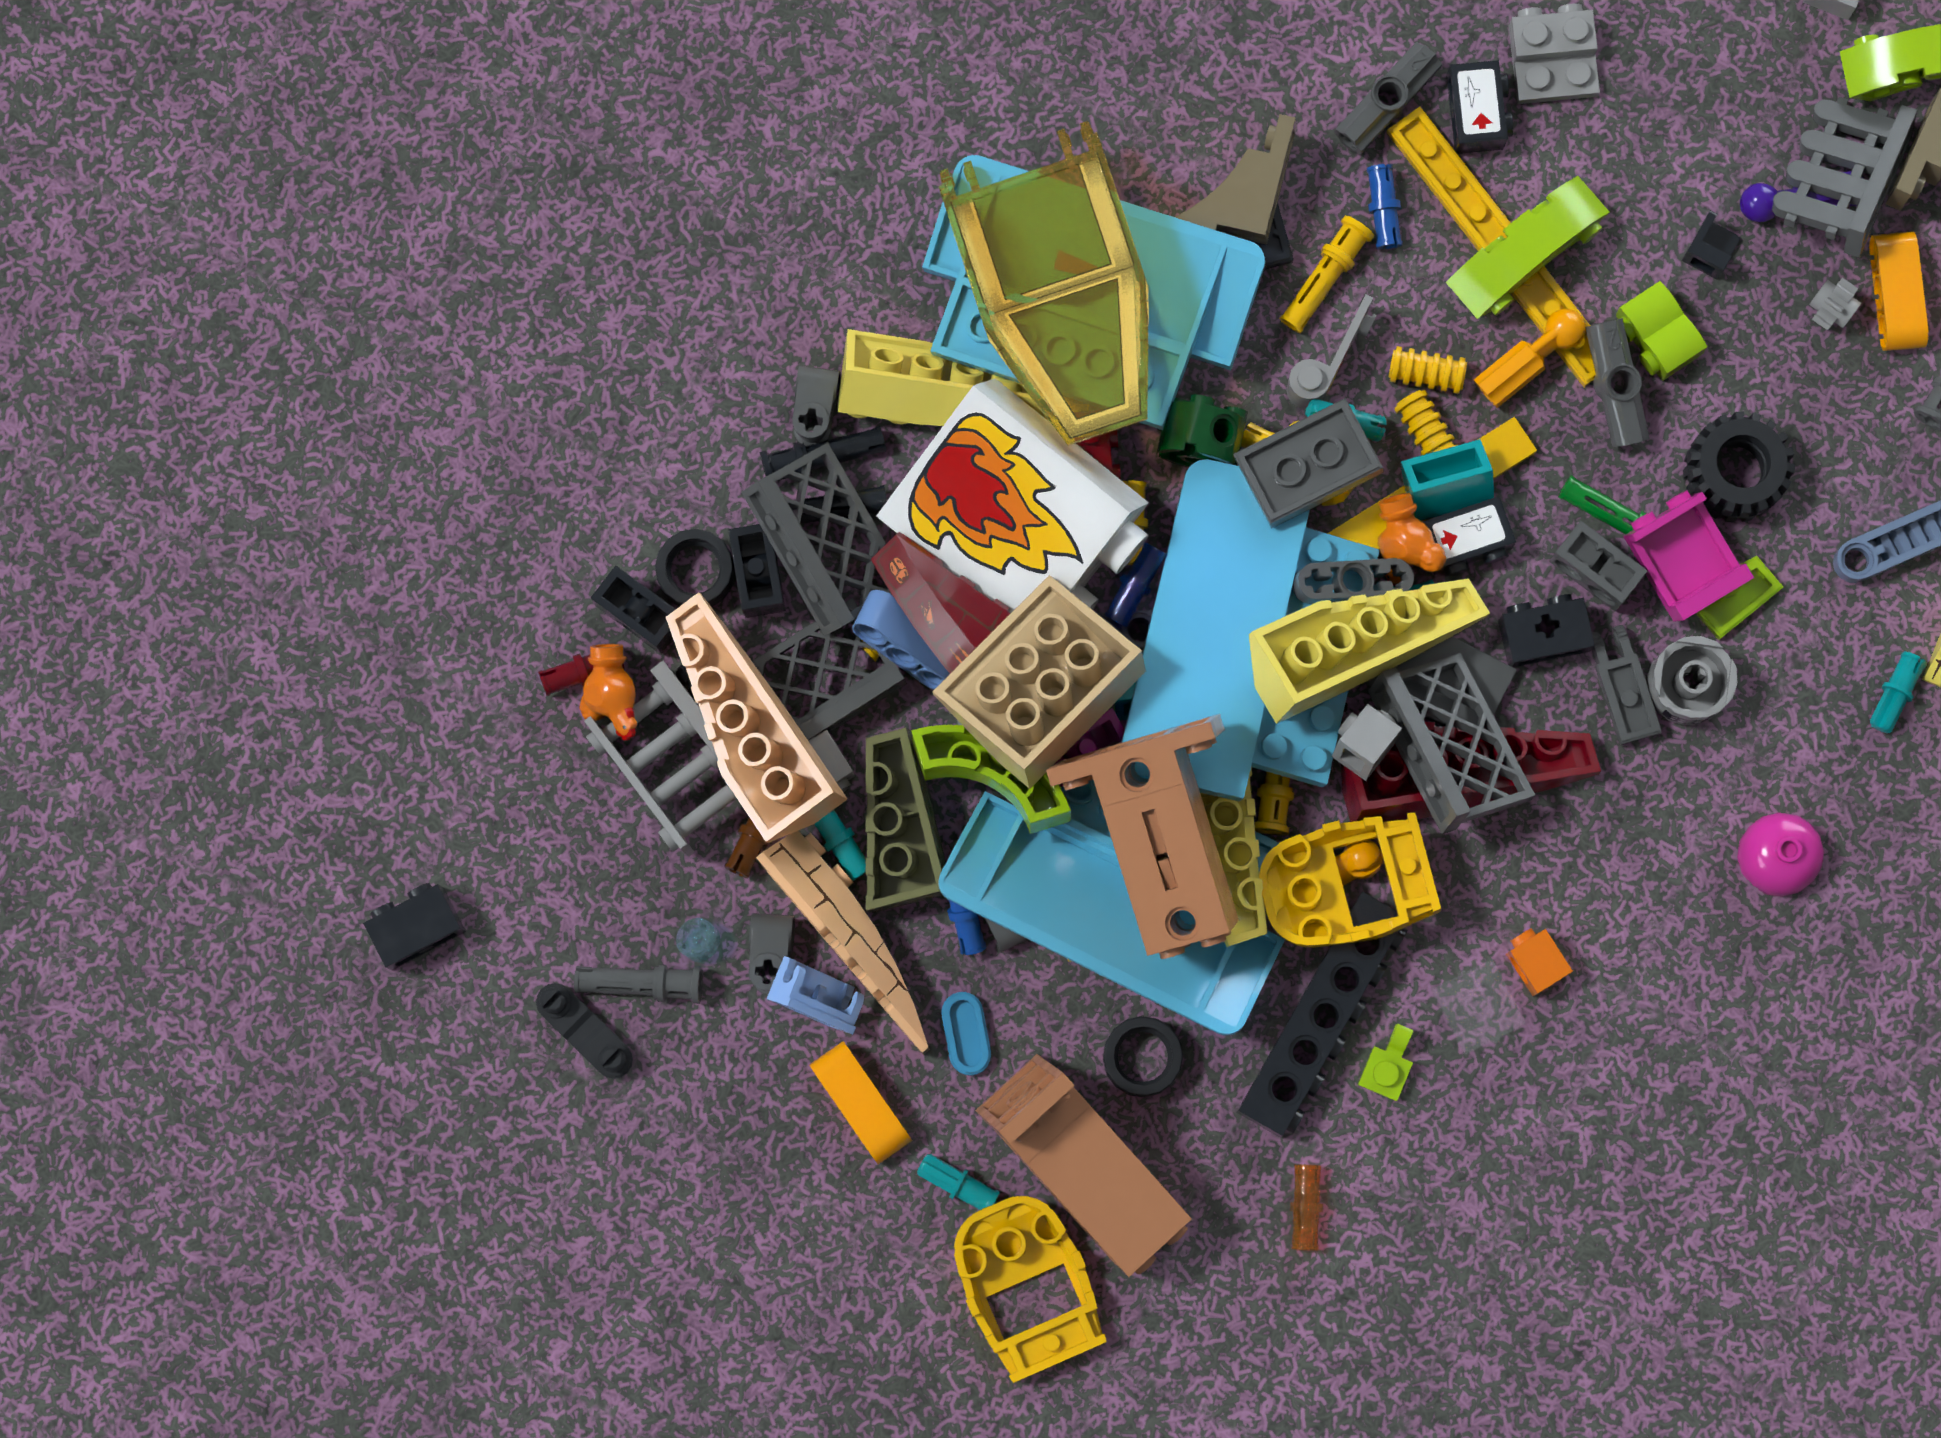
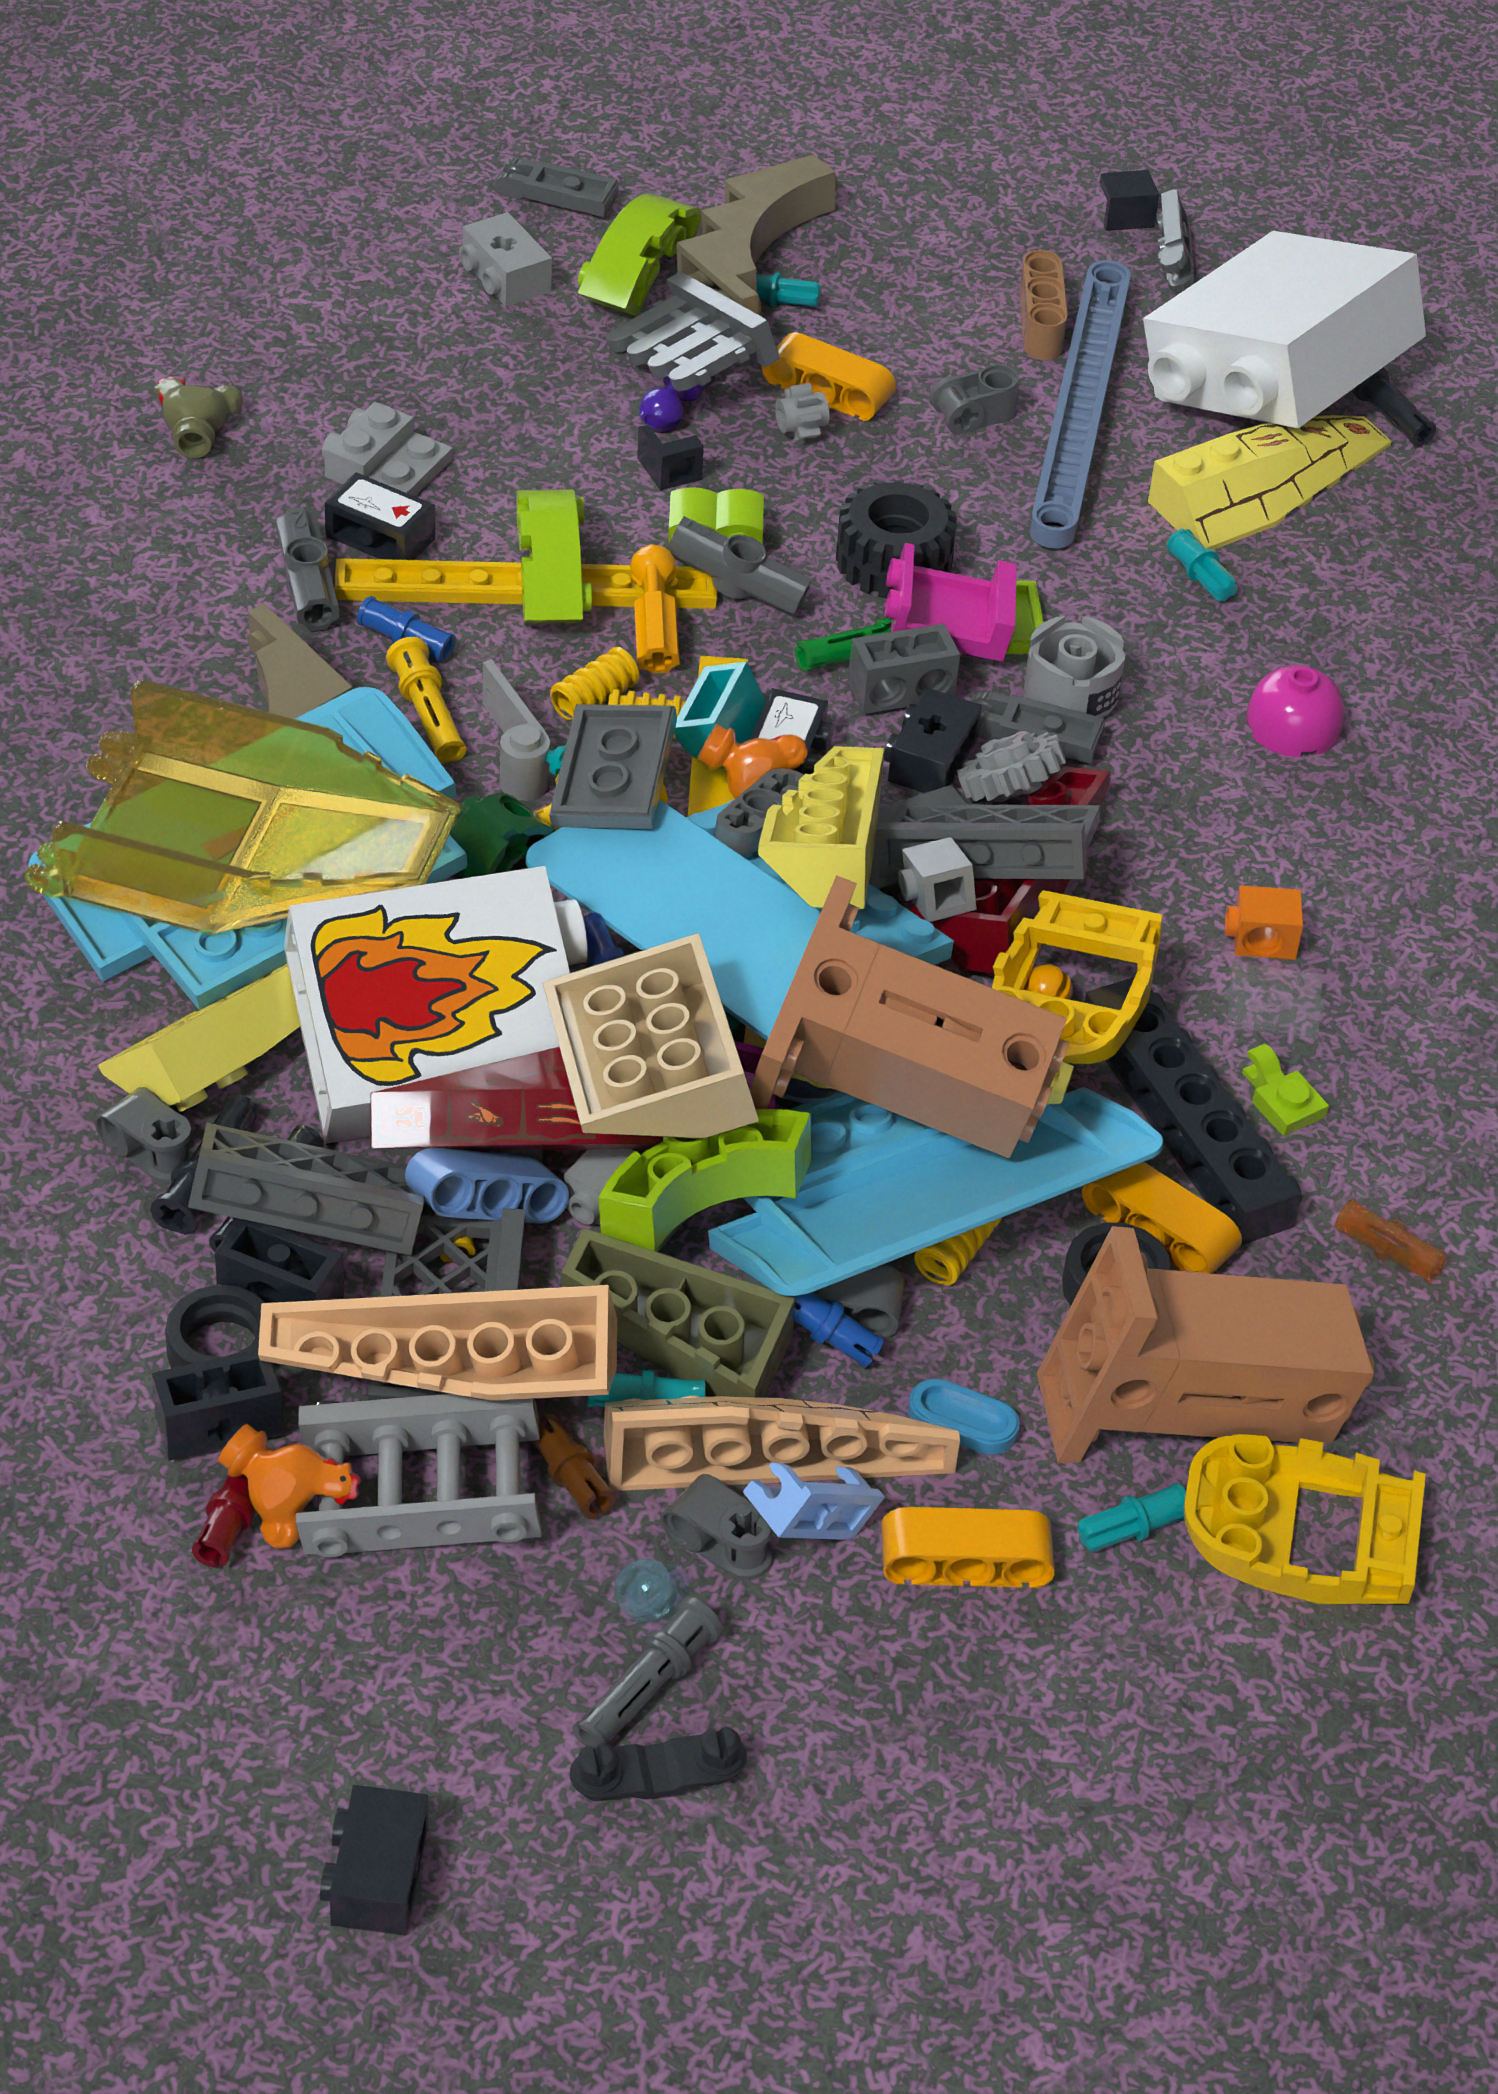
camera: 65 degrees left, 35 degrees down
(1211, 1072) = (1188, 1227): none -> light orange beam
(1552, 703) = (1011, 766): none -> light grey gear

